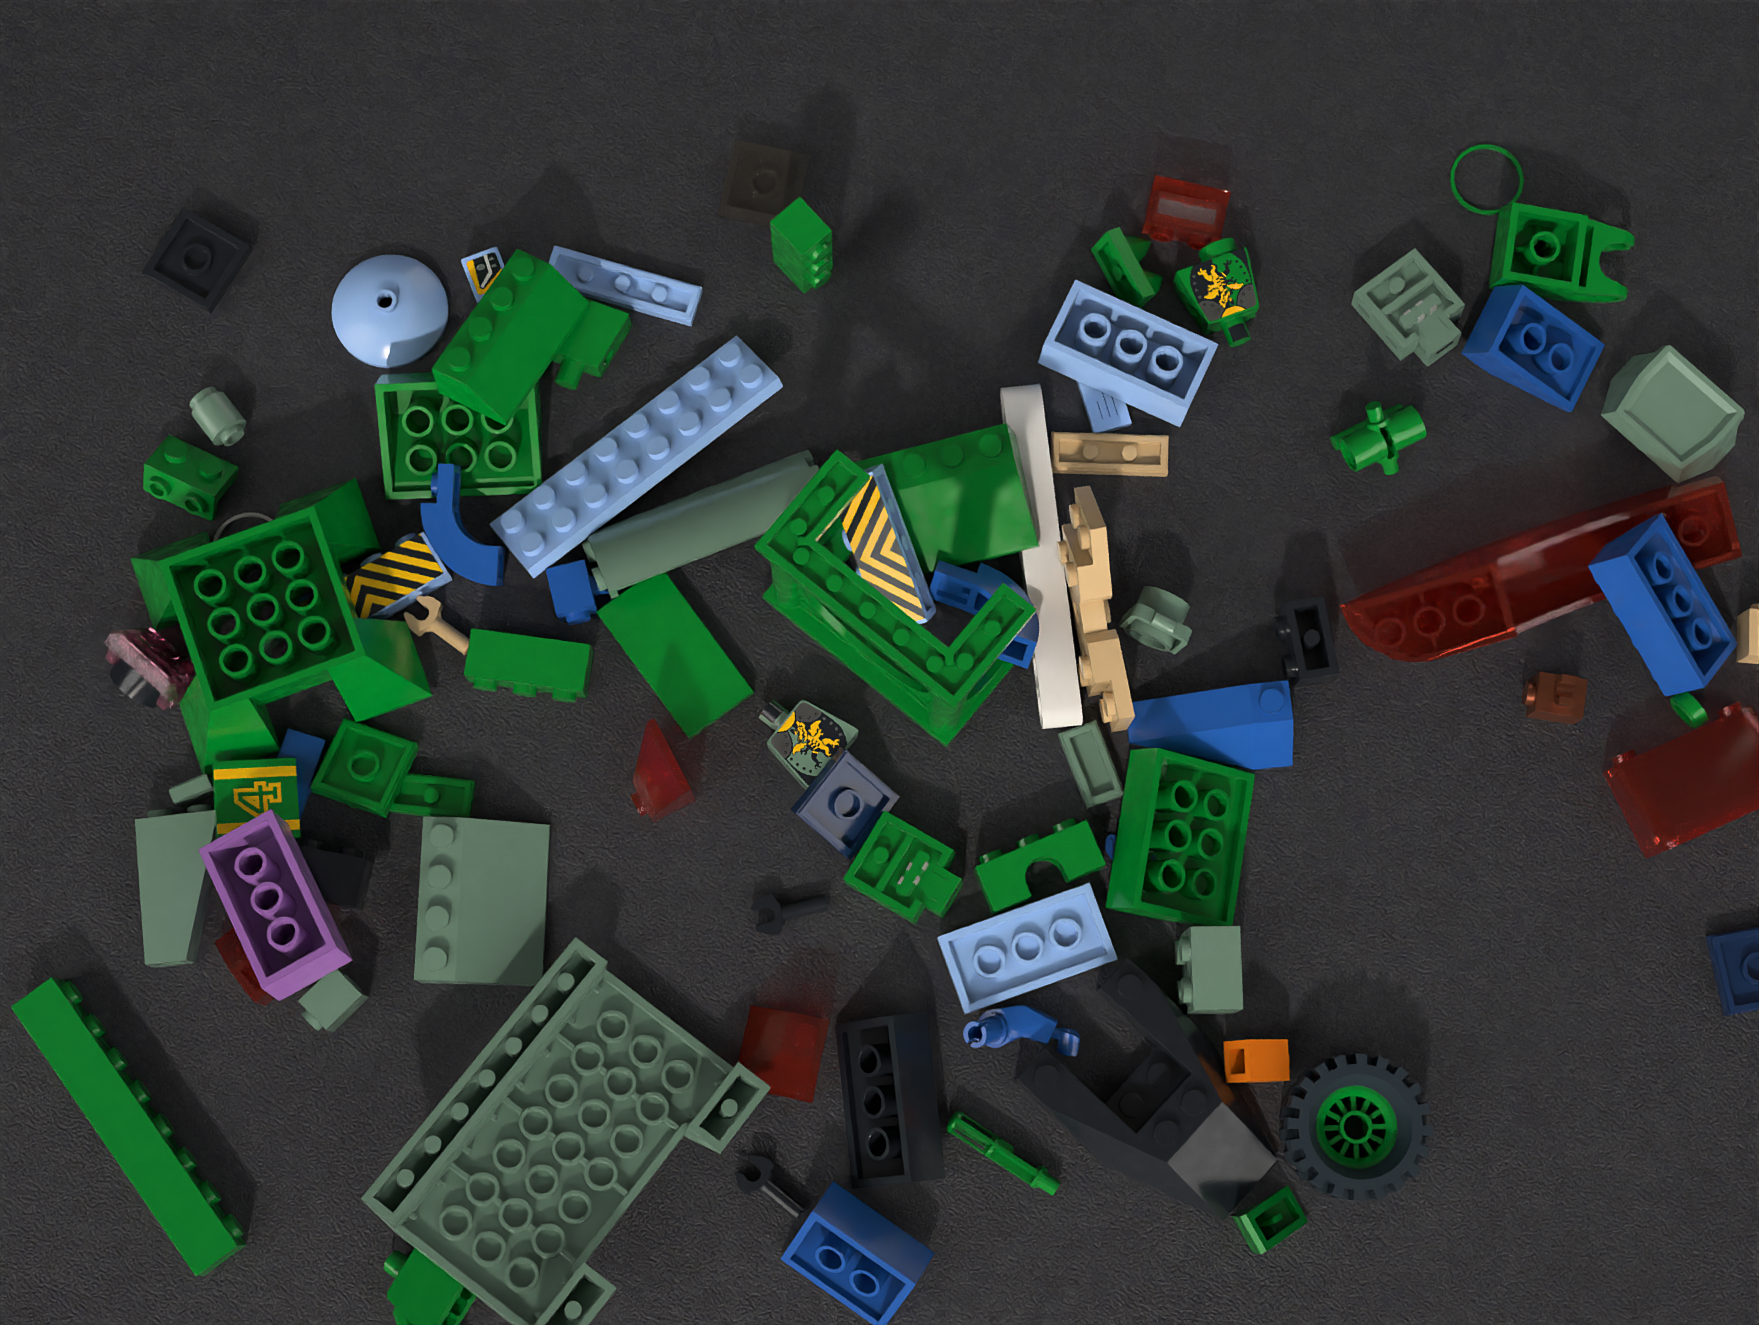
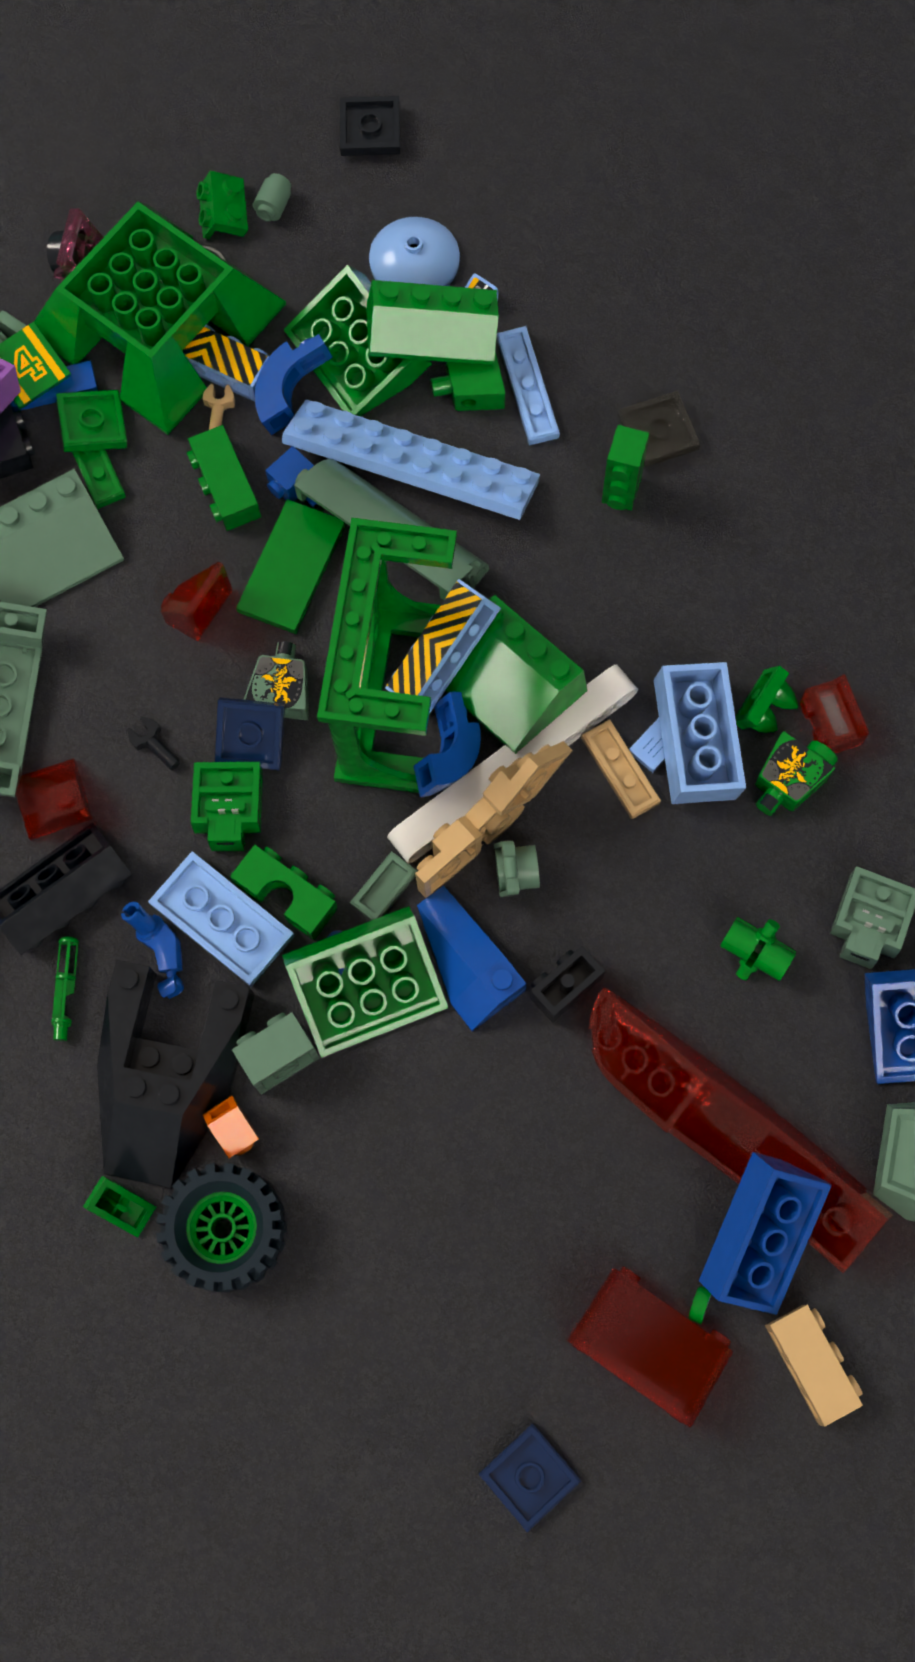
camera: 65 degrees right, 5 degrees down
(1555, 697) = (643, 1194): copper brick -> none

